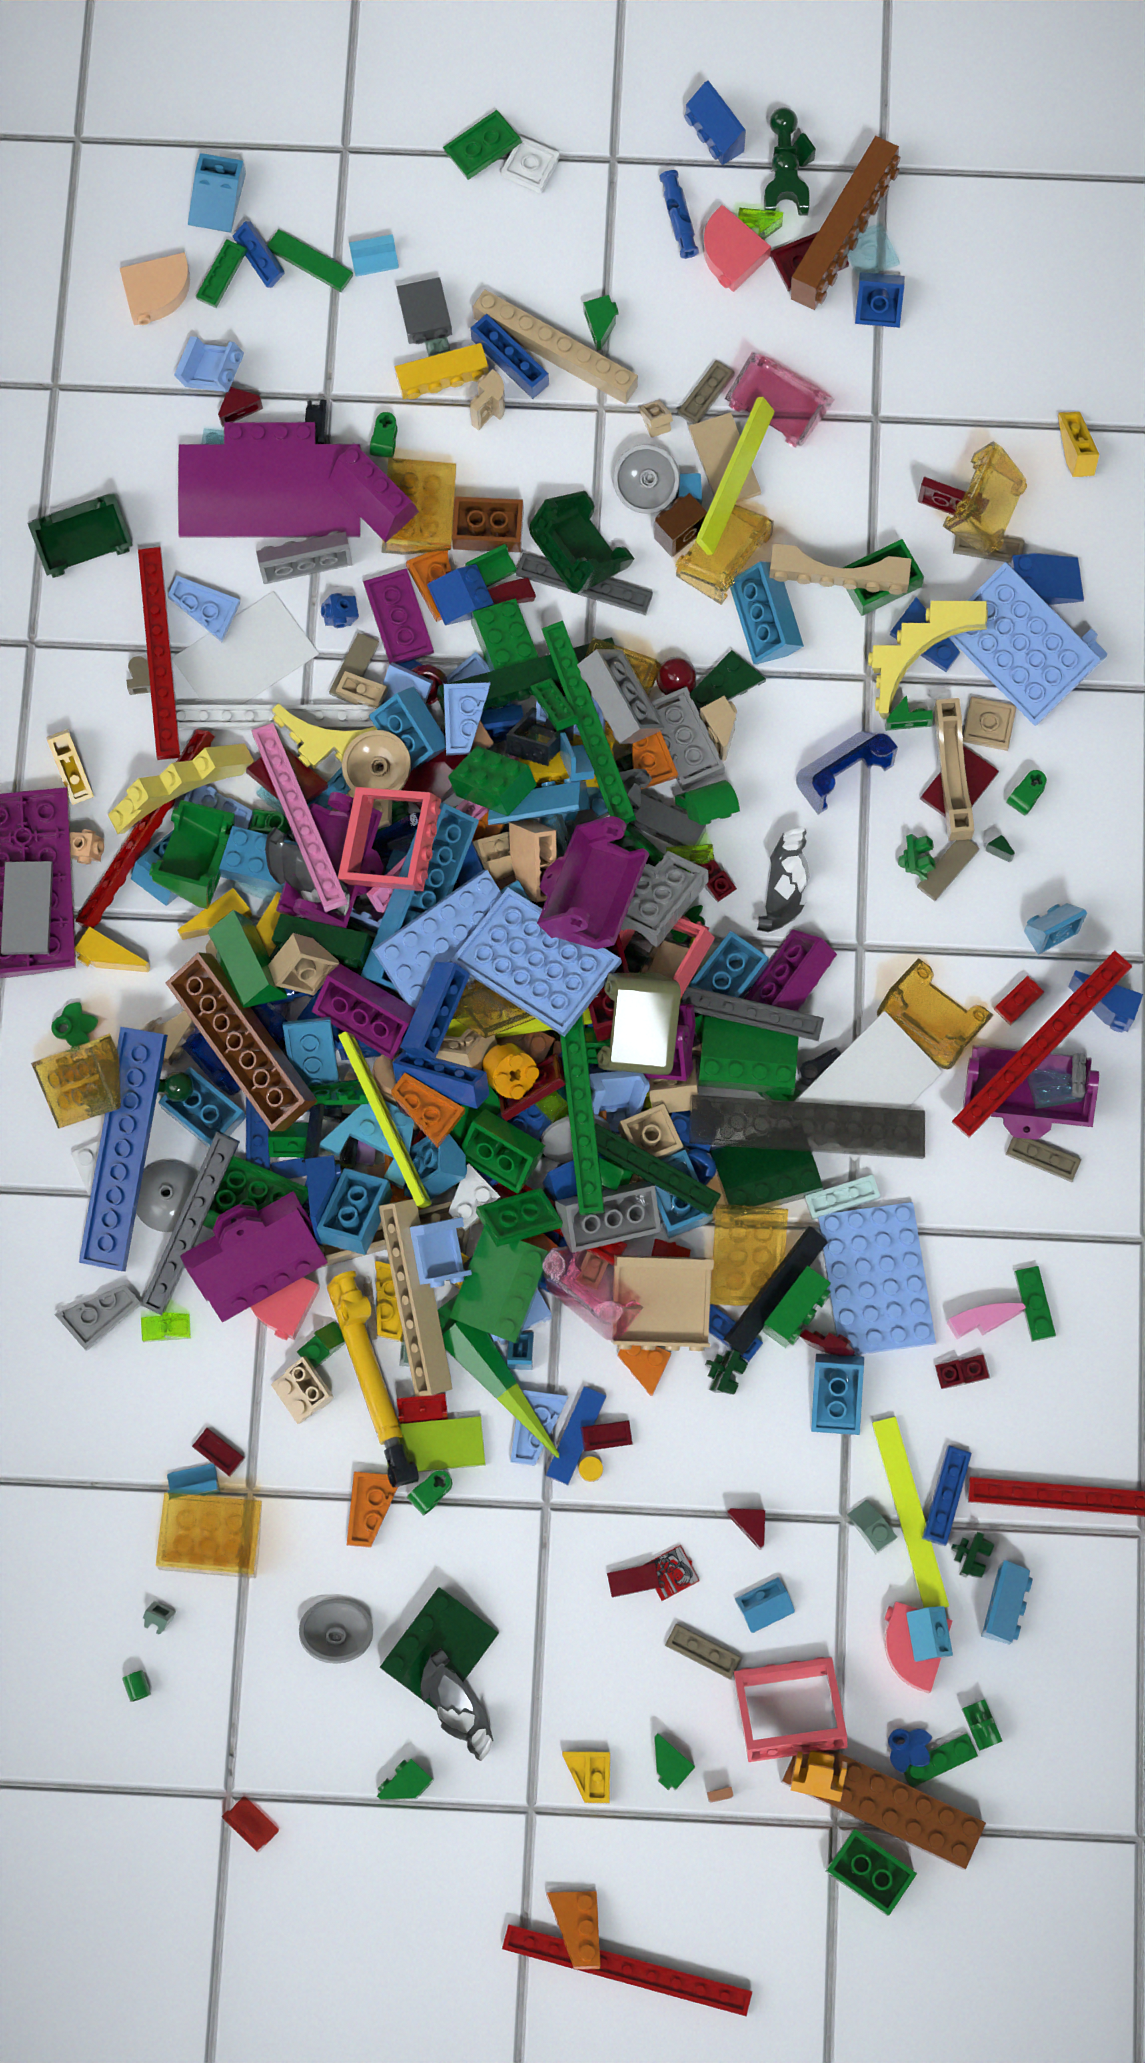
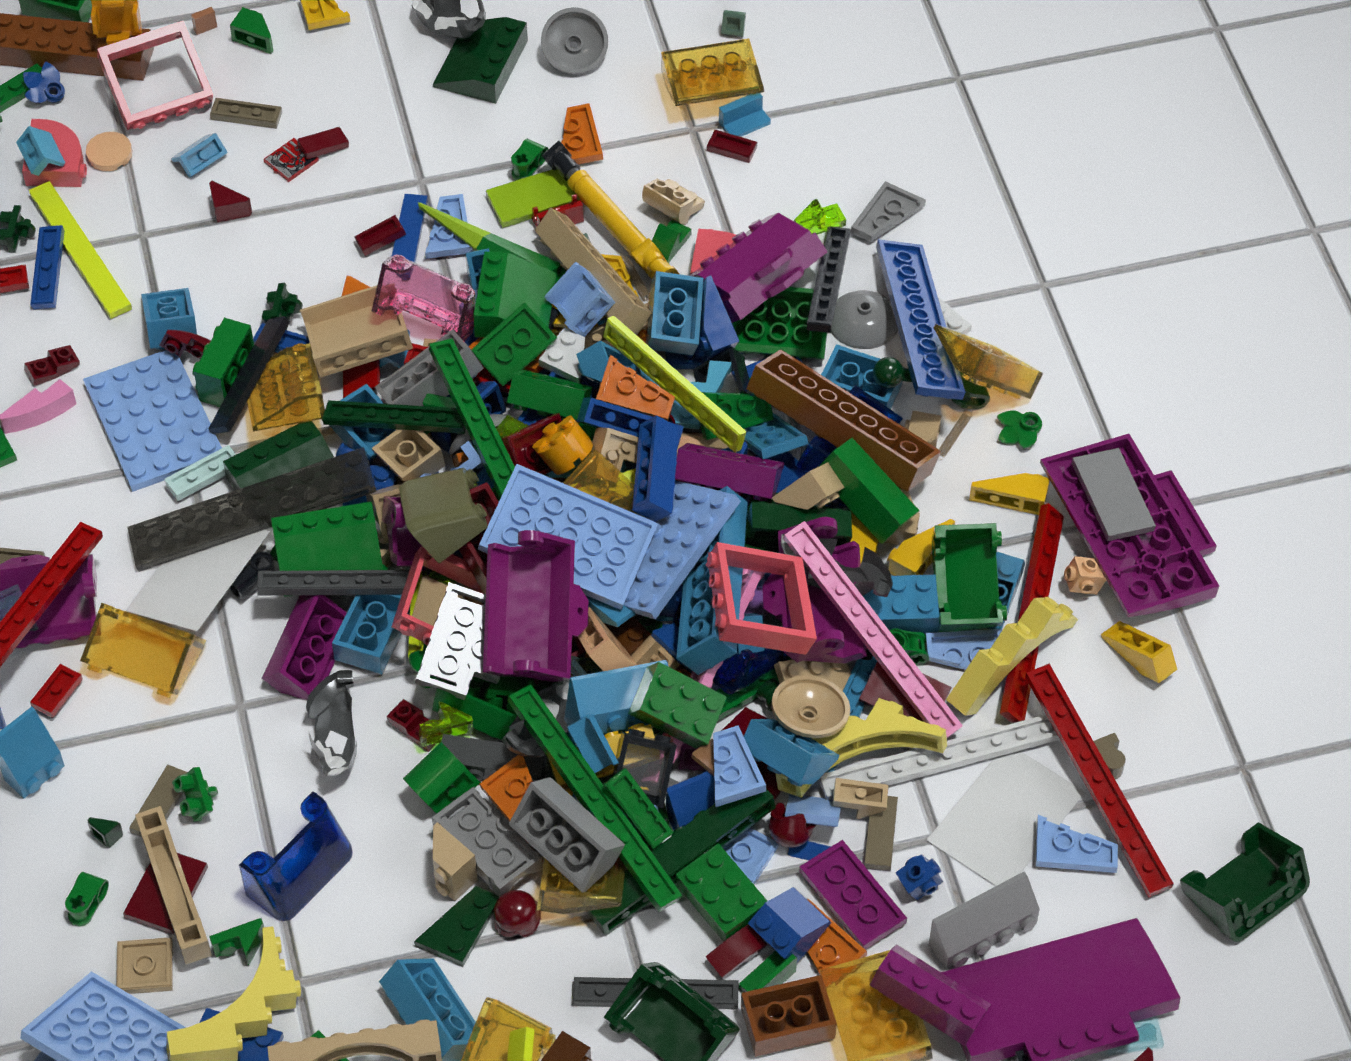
camera: 160 degrees right, 20 degrees down
(590, 1469) = (386, 210): yellow tile -> none
(856, 1639) = (109, 151): none -> light nougat tile
(872, 1526) = (111, 226): sand green slope -> none

